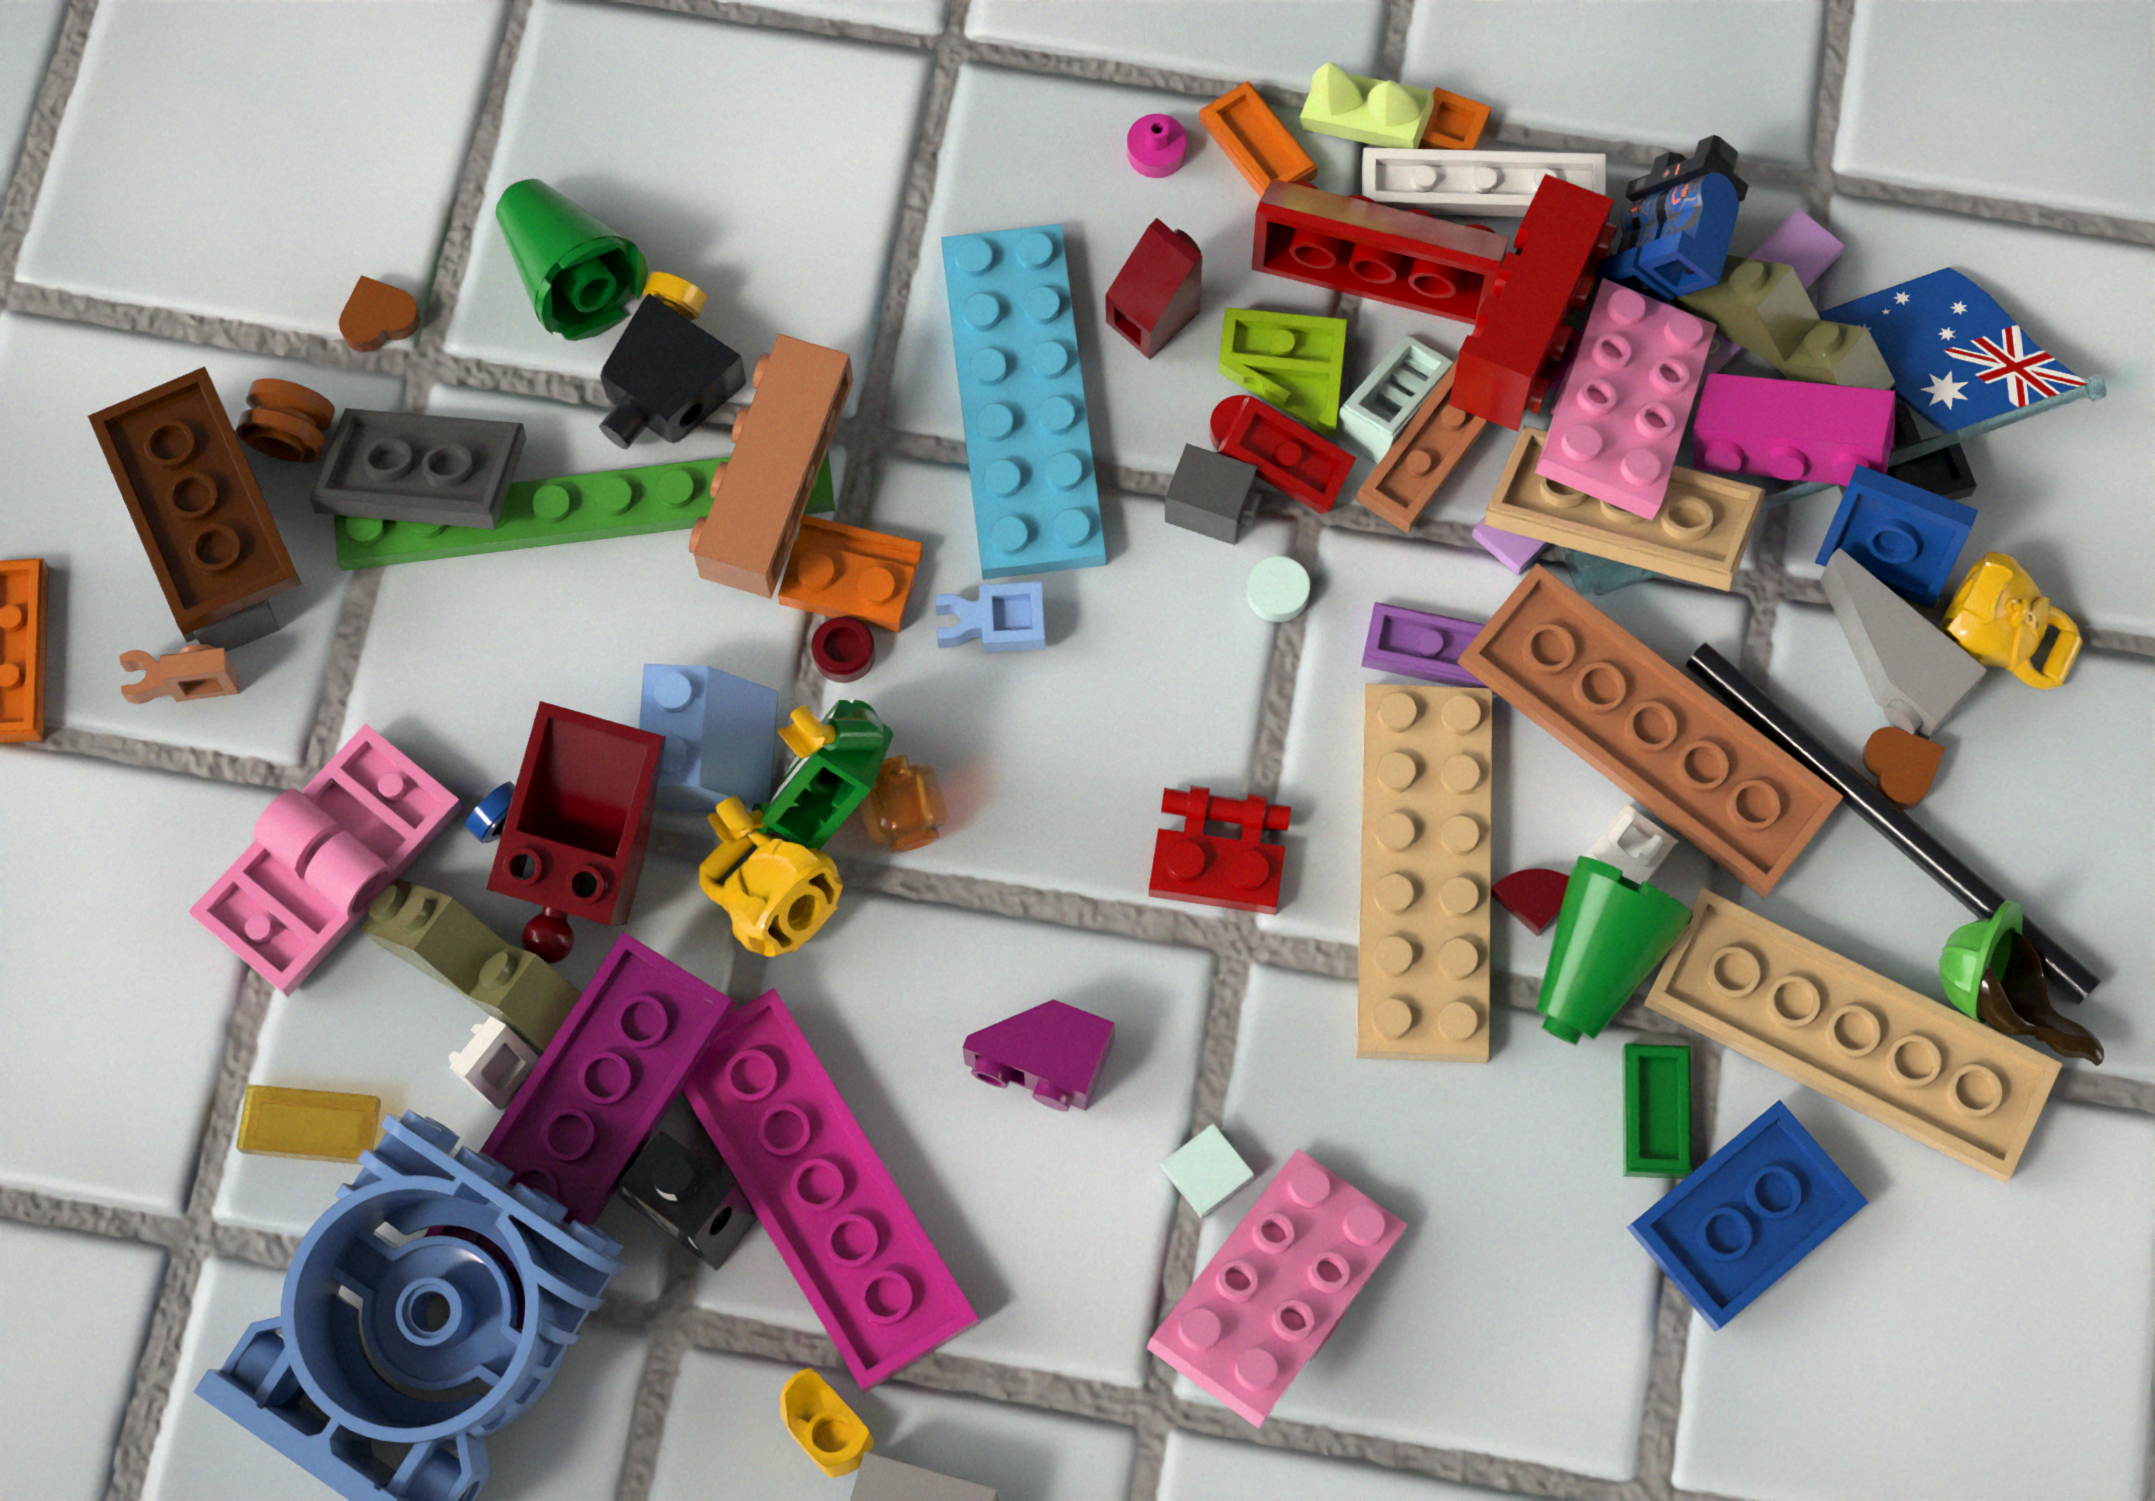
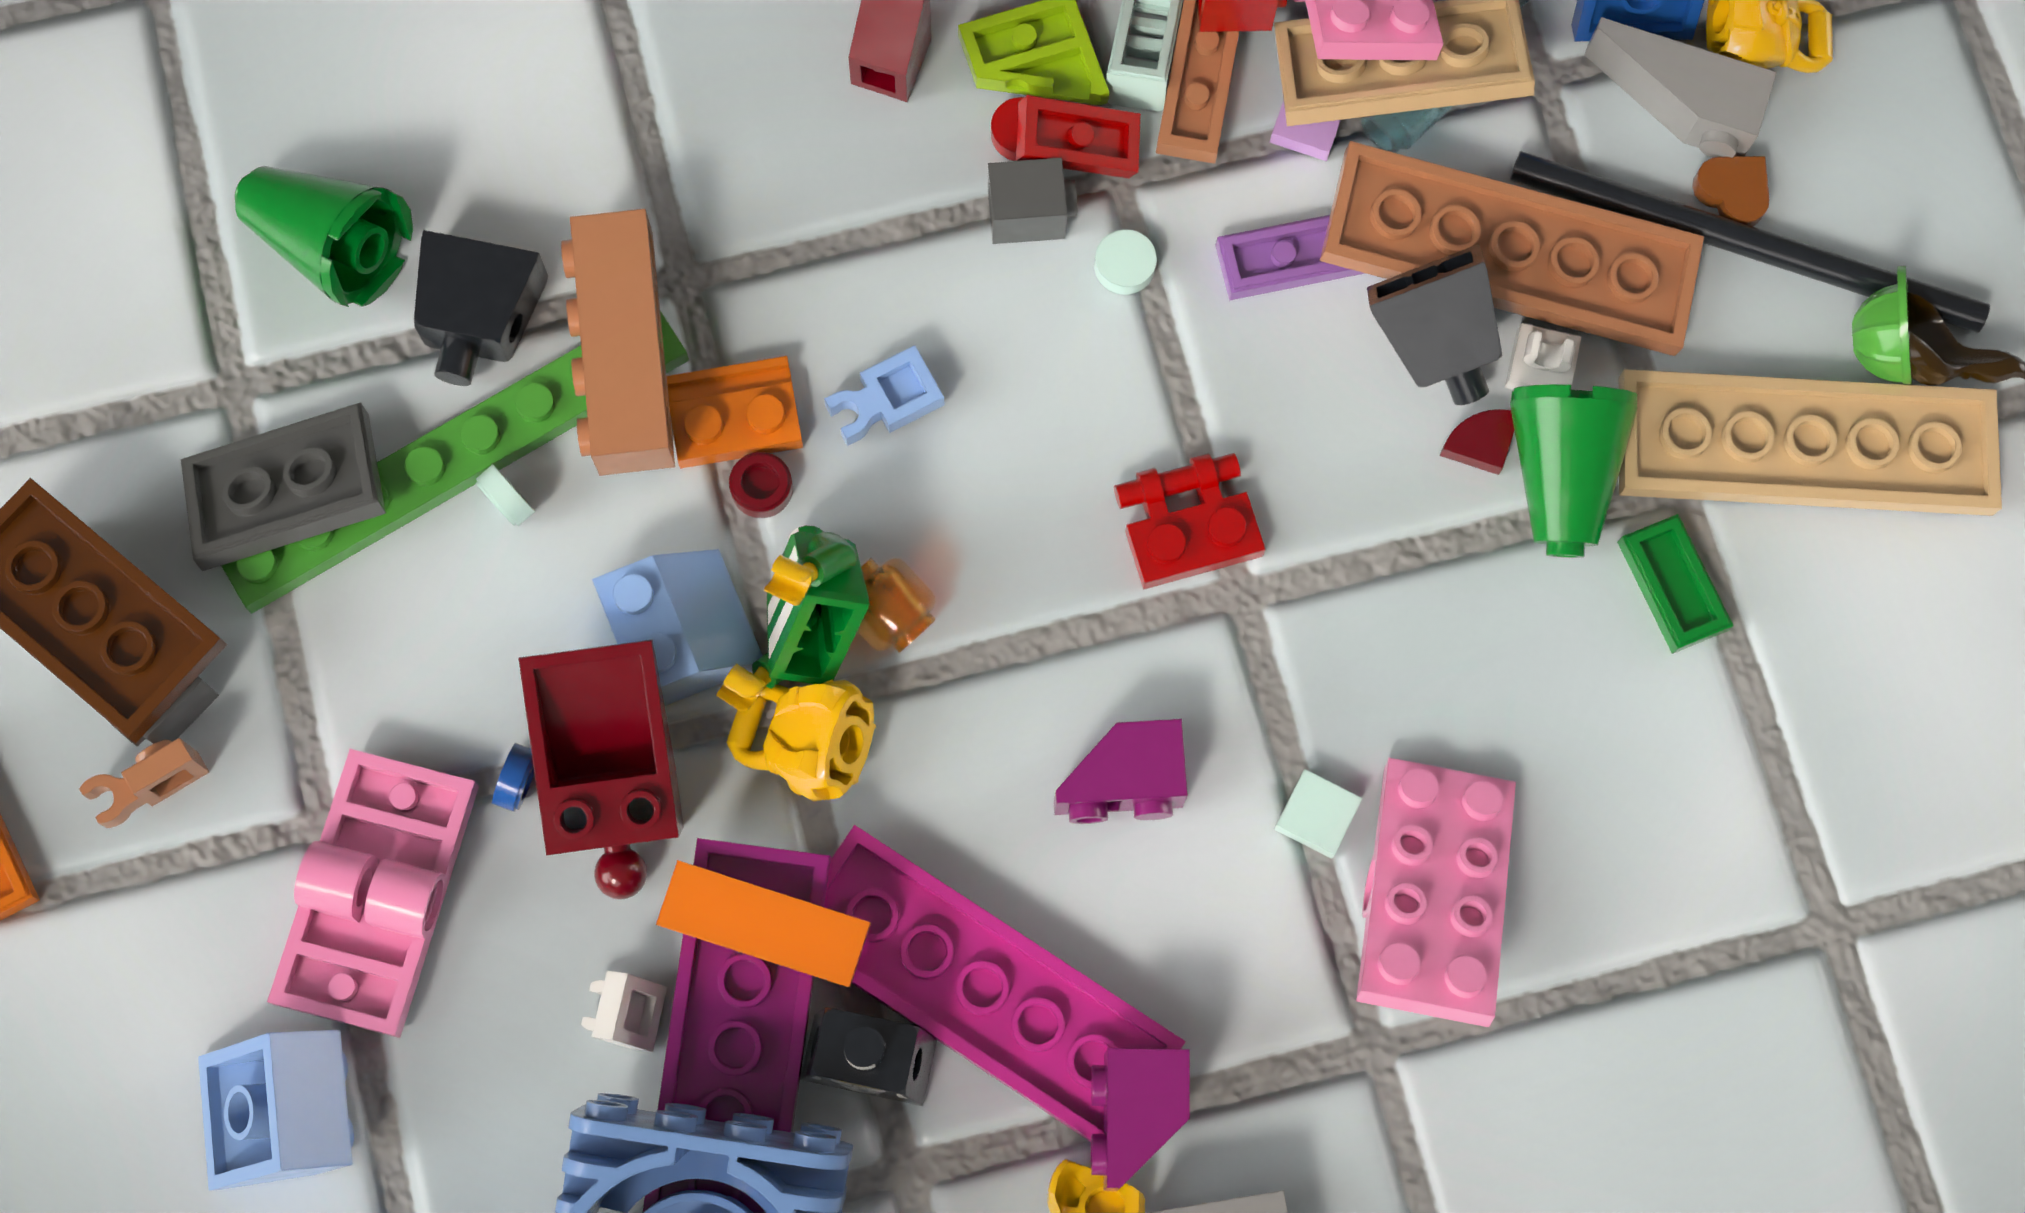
camera: 30 degrees left, 5 degrees up
(152, 1008) = (275, 1108): none -> light blue slope
(285, 420) = (130, 495): dark orange wheel -> none
(307, 1124) = (479, 1147): clear yellow tile -> none
(377, 314) = (167, 357): dark orange tile -> none
(468, 957) = (558, 926): olive arch -> none
(608, 560) = (504, 496): none -> light aqua tile
(644, 1033) = (763, 923): none -> orange tile
(676, 294) = (445, 219): yellow tile -> none
(902, 1357) = (1143, 1105): none -> magenta slope
(1022, 402) = (813, 187): medium azure plate -> none
(1425, 874) = (1377, 462): tan plate -> none
(1541, 767) = (1442, 322): none -> torso
(1747, 1215) = (1799, 641): blue plate -> none

